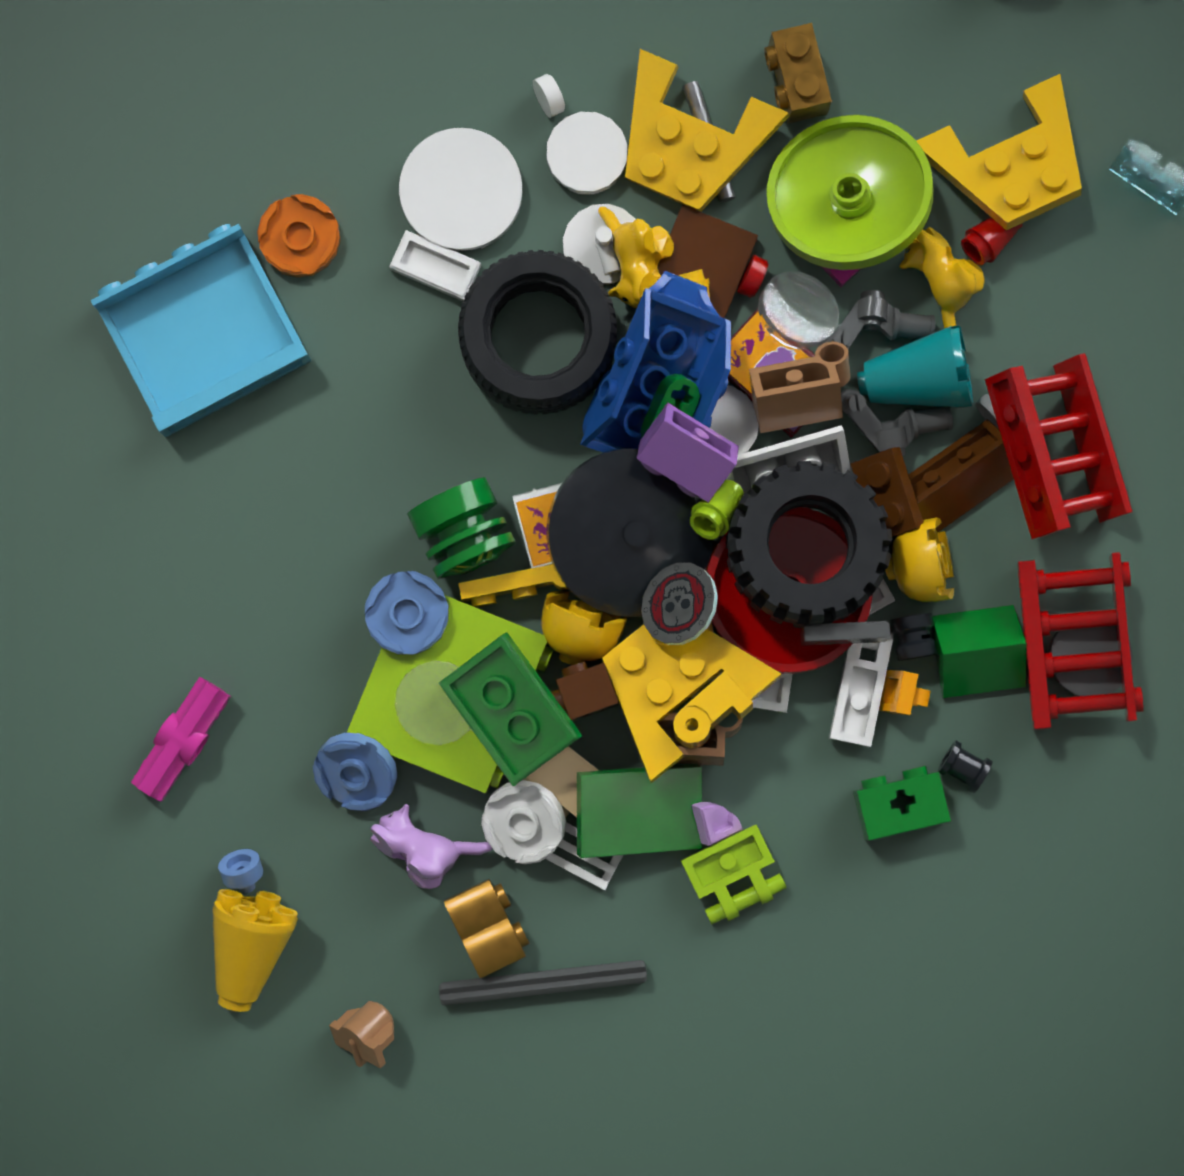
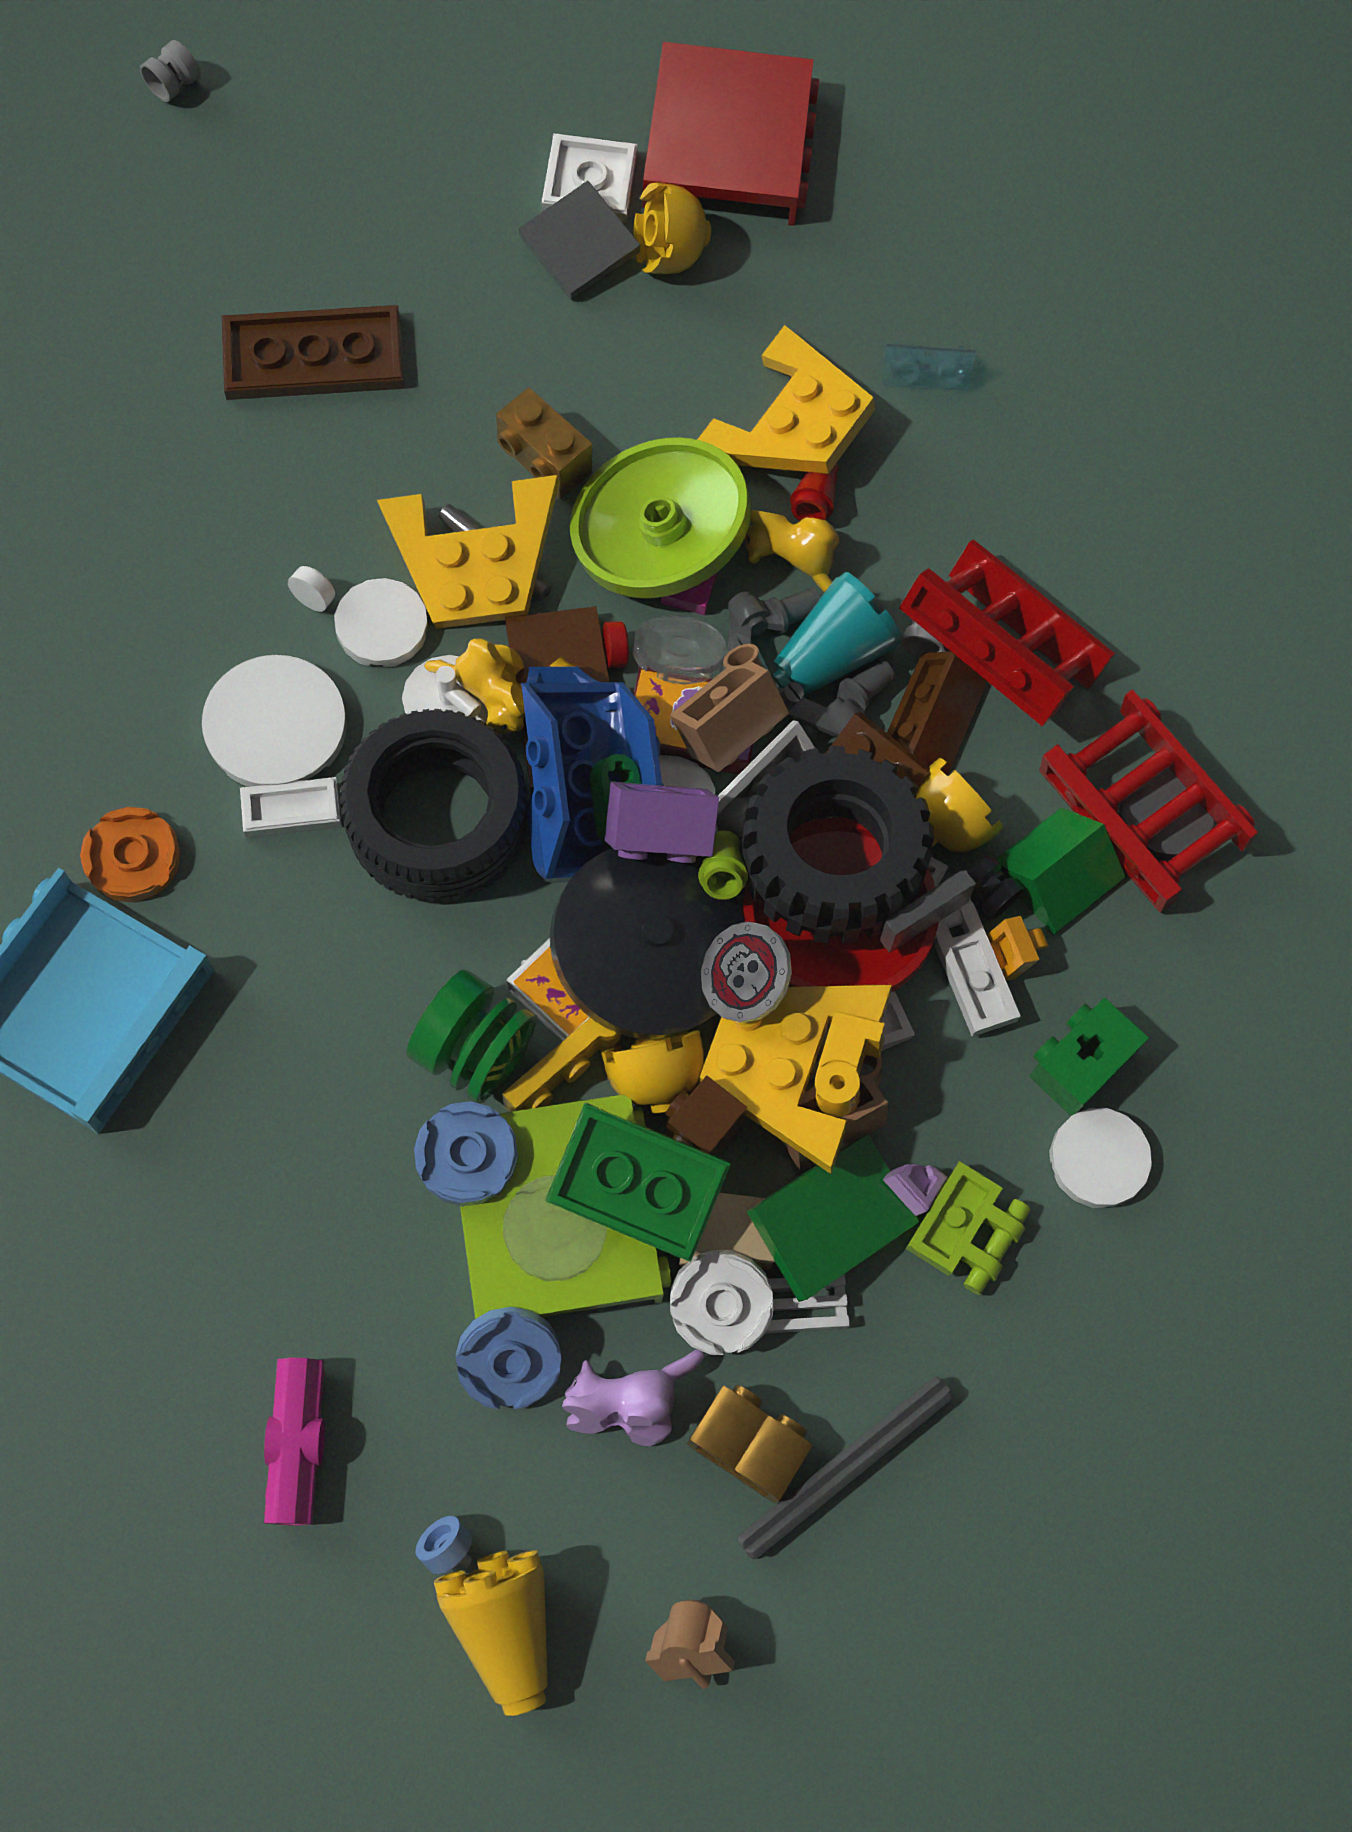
camera: 35 degrees left, 15 degrees down
(863, 881) = (1100, 1158): none -> white tile
(965, 766) = (1123, 982): black bush -> none

